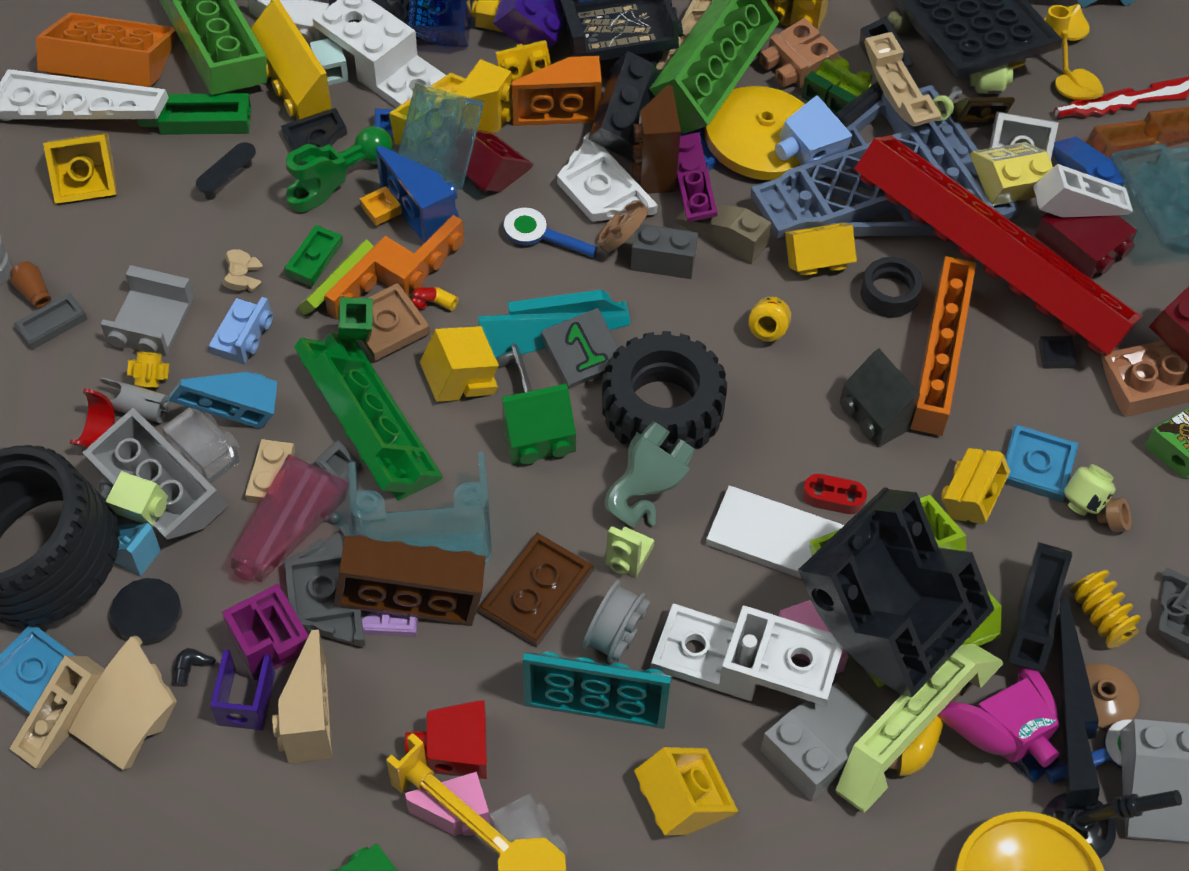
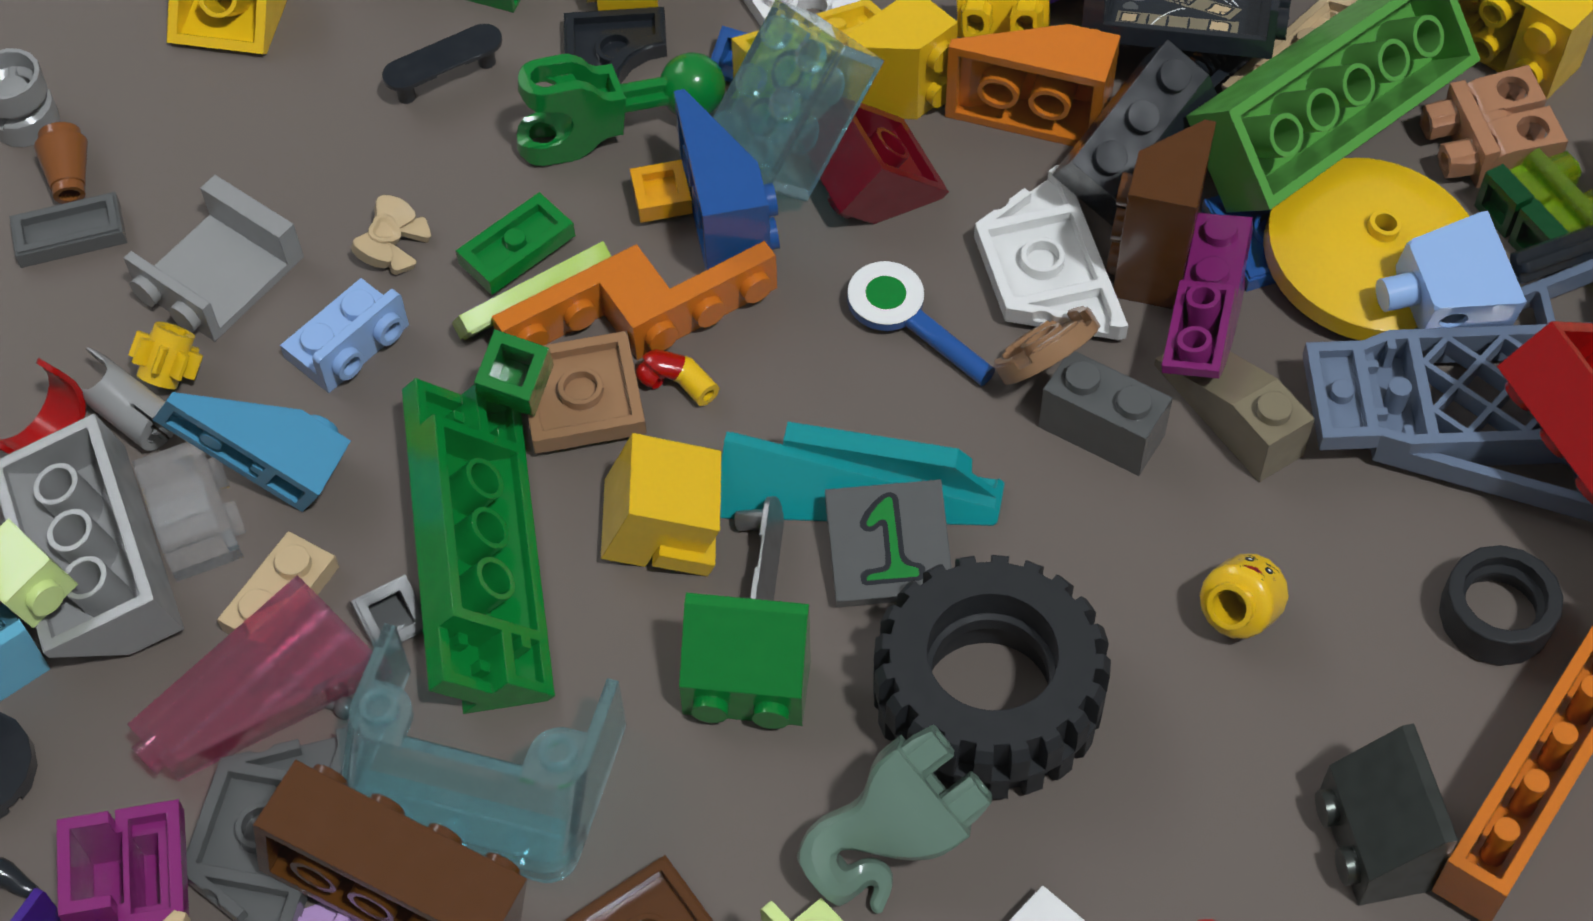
camera: 25 degrees right, 0 degrees up
(821, 247) = (1392, 492): yellow brick -> none

